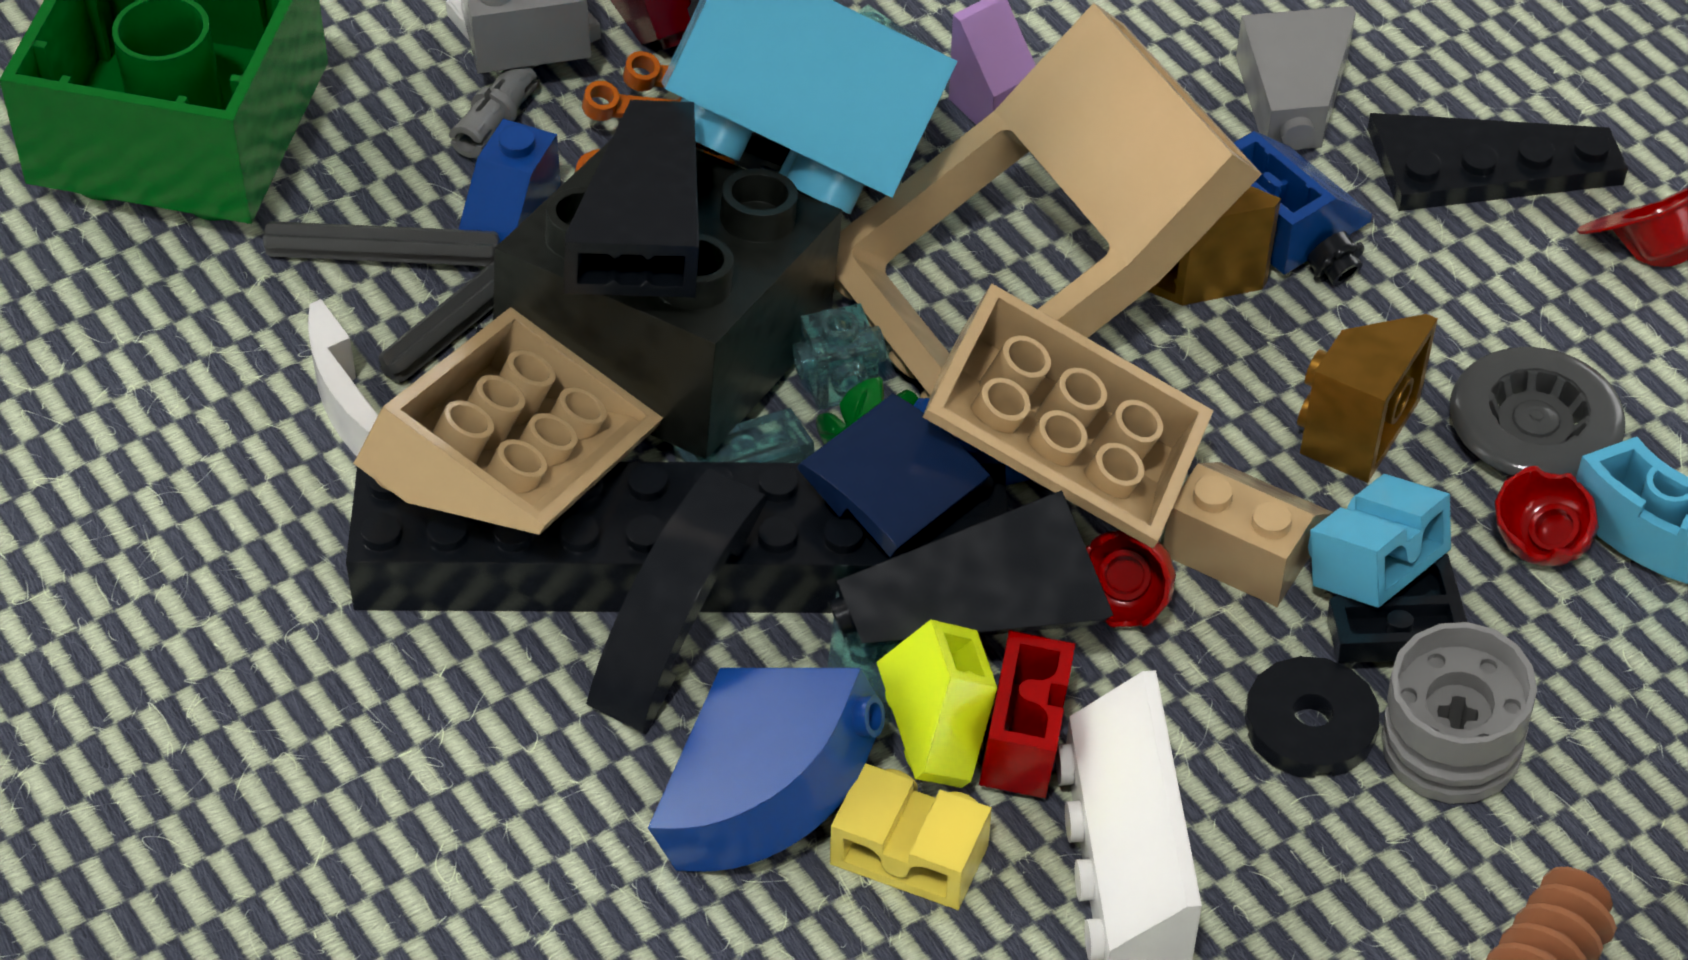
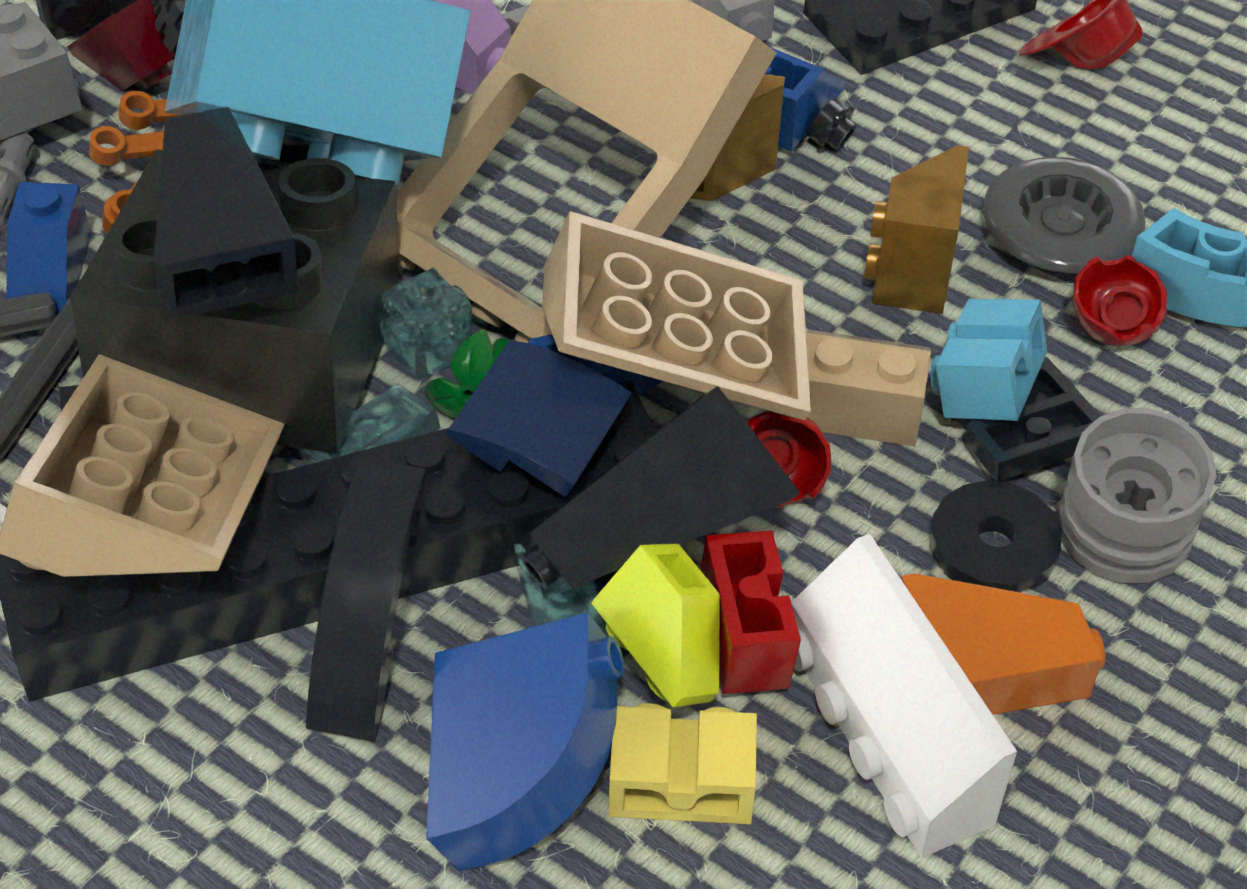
camera: 20 degrees left, 0 degrees up
(1260, 818) = (1011, 643): none -> orange slope

